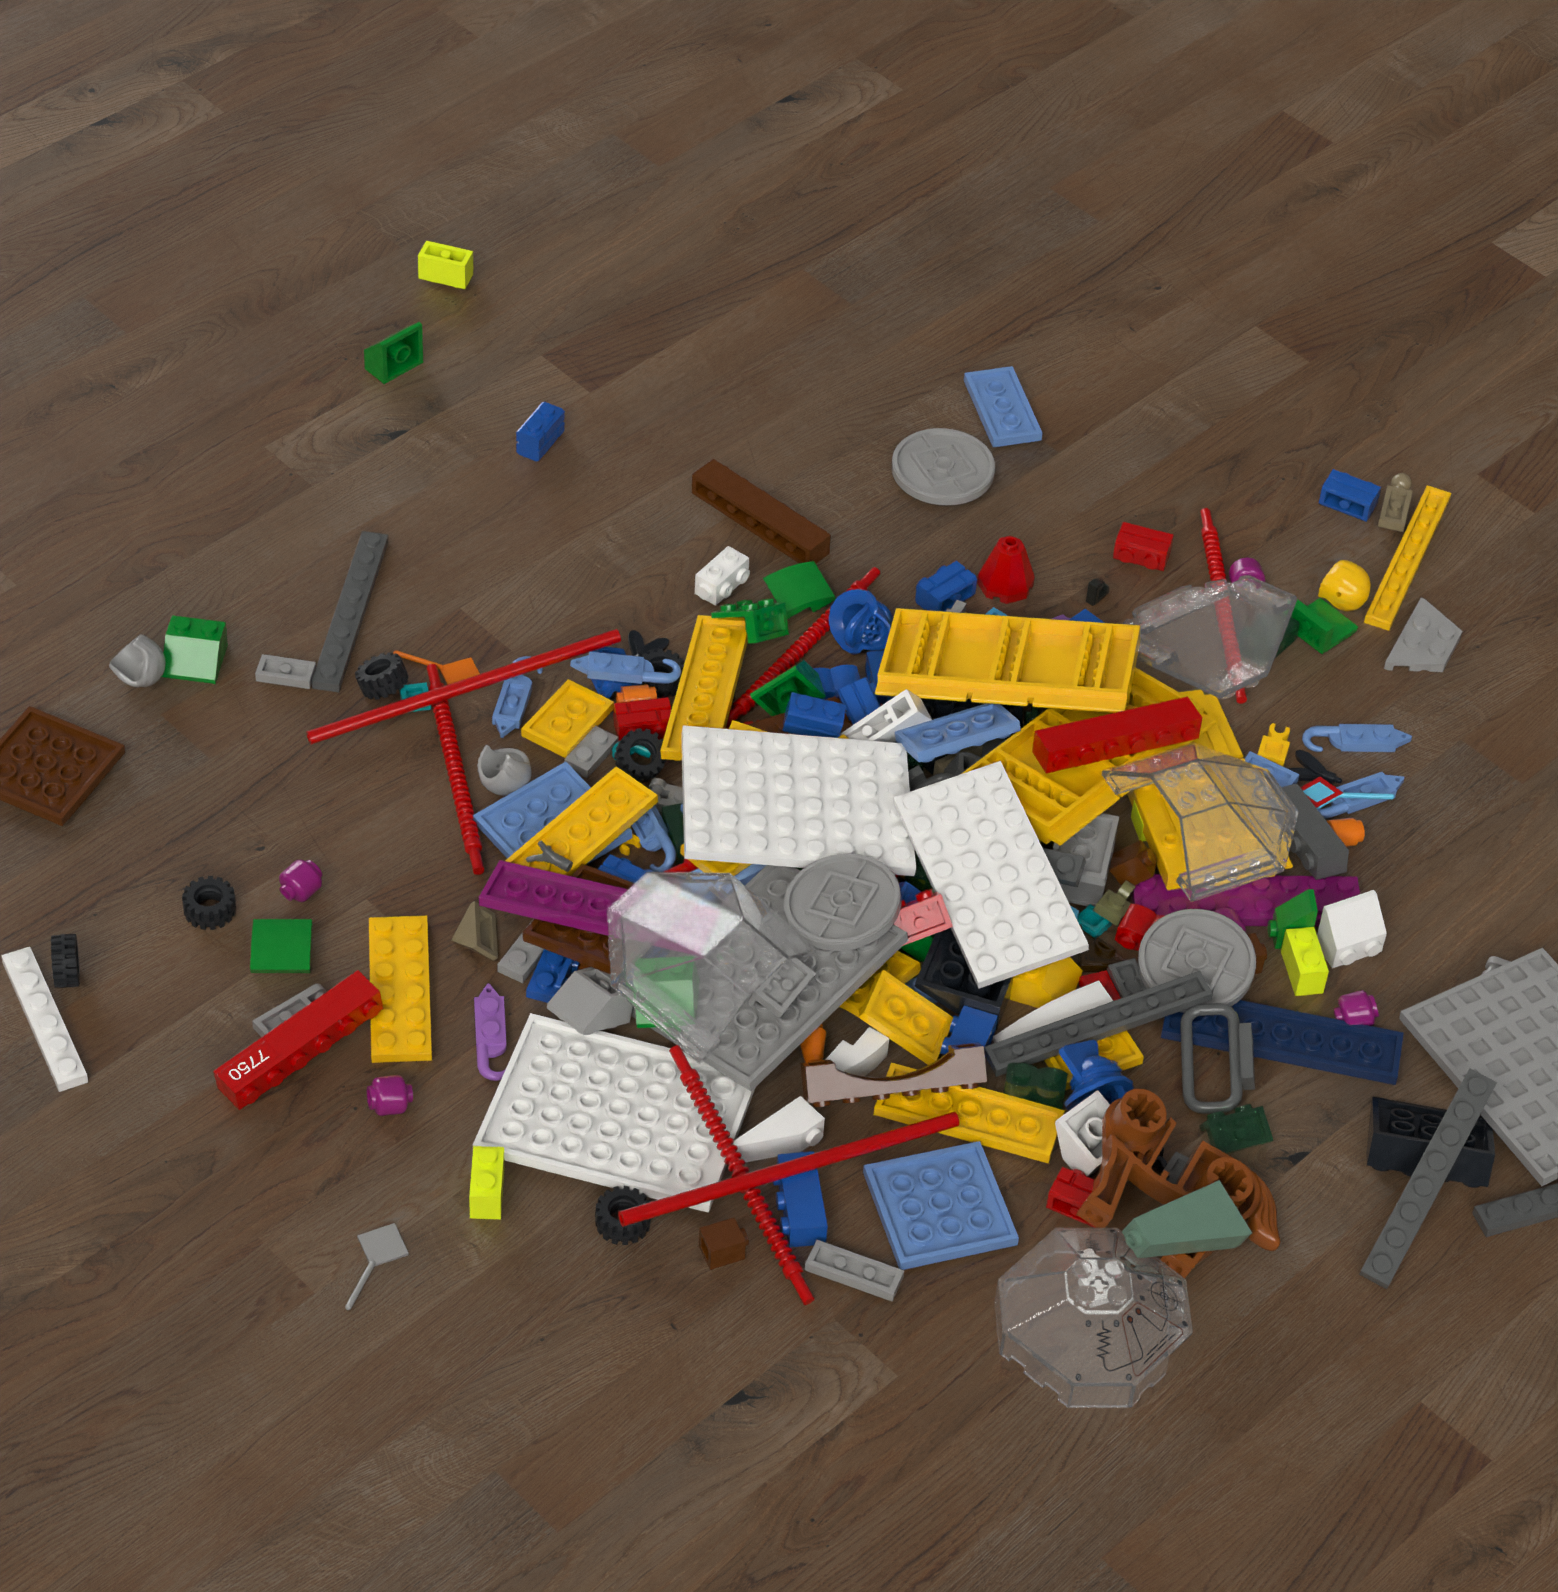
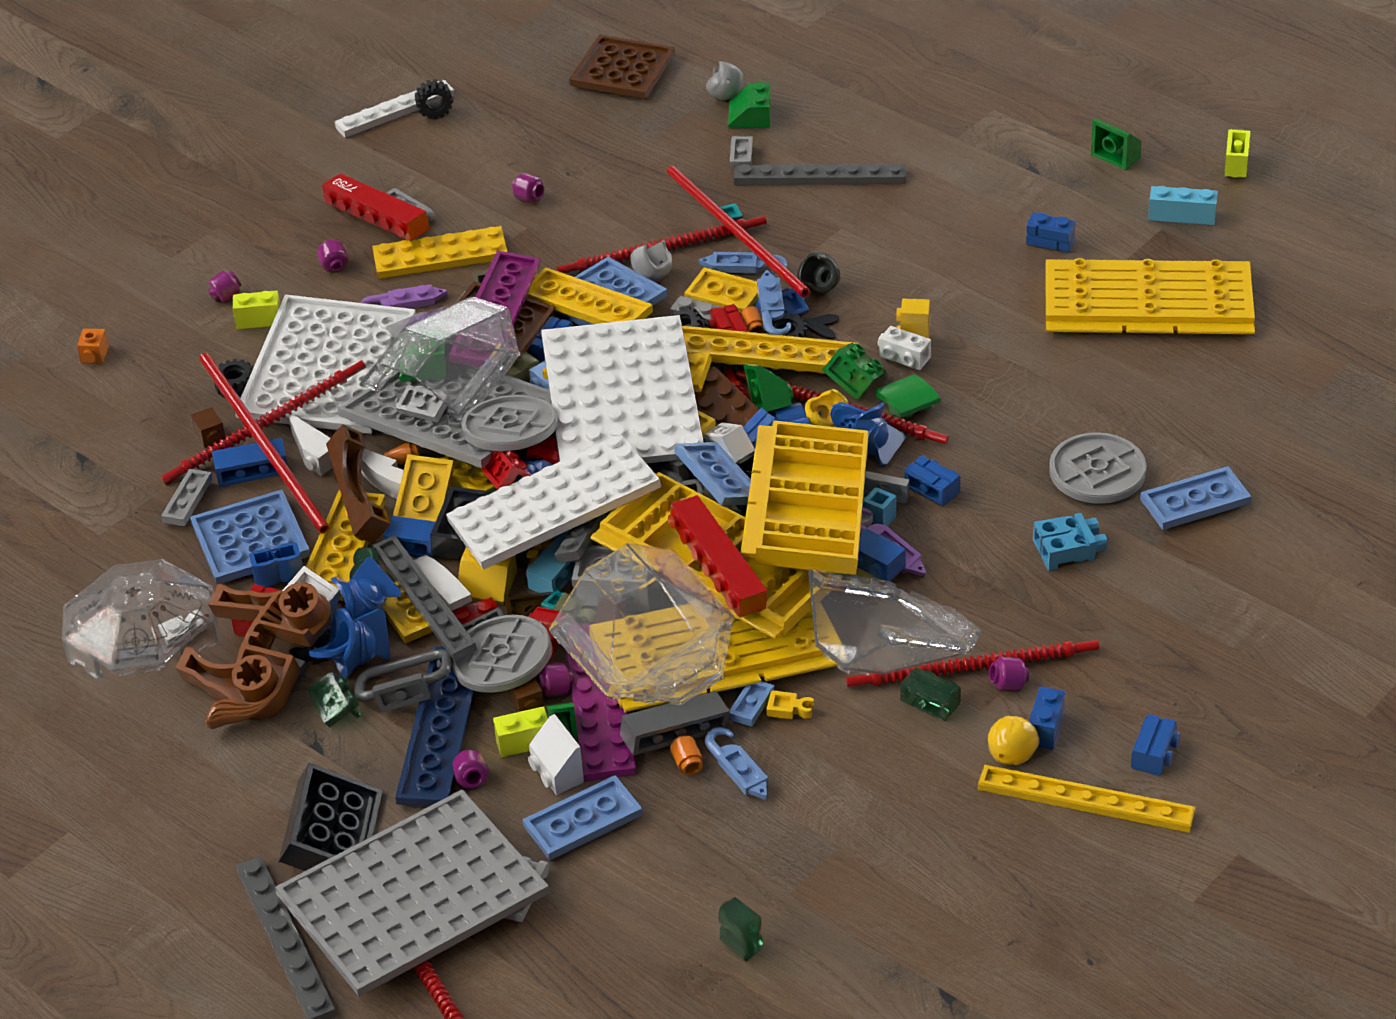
camera: 90 degrees right, 5 degrees down
(209, 915) = (504, 155): black tyre -> none
(281, 946) = (468, 189): green slope -> none
(379, 1247) = (202, 279): light grey piece -> none
(381, 675) = (741, 192): black tyre -> none
(421, 1220) = (224, 286): none -> magenta head
(451, 672) = (770, 236): orange piece -> none
(516, 1376) = (93, 346): none -> orange brick
(522, 324) = (1182, 205): none -> medium azure brick
(551, 857) = (551, 286): dark grey bar -> none
(577, 630) = (819, 272): none -> pearl dark grey piece
(672, 383) = (1149, 296): none -> yellow door
(690, 555) = (914, 316): none -> yellow brick
(760, 513) = (993, 364): reddish brown brick -> none
(813, 716) = (723, 396): blue brick -> none
(824, 648) = (823, 405): none -> yellow piece
(1007, 572) = (964, 513): red cone -> none
(1011, 1169) = (275, 564): none -> blue brick
(1057, 505) = (1068, 540): none -> dark azure hips
(1096, 591) = (962, 576): pearl dark grey tile -> none
(1143, 546) = (1028, 602): red brick -> none
(1178, 1090) = (355, 640): none -> blue helmet
(1189, 1225) = (201, 648): sand green slope -> none
(1309, 558) = (1048, 715): none -> blue brick
(1313, 769) = (768, 739): black piece -> none
(1322, 625) = (957, 728): green bracket -> none
(1322, 793) = (729, 734): medium azure piece -> none
(1358, 737) = (819, 767): medium blue plate -> none
(1396, 503) = (1158, 782): dark tan plate -> none
(1425, 641) = (966, 813): light grey wing -> none
(1427, 926) = (582, 817): none -> medium blue plate
(1427, 1179) = (268, 803): dark grey plate -> none

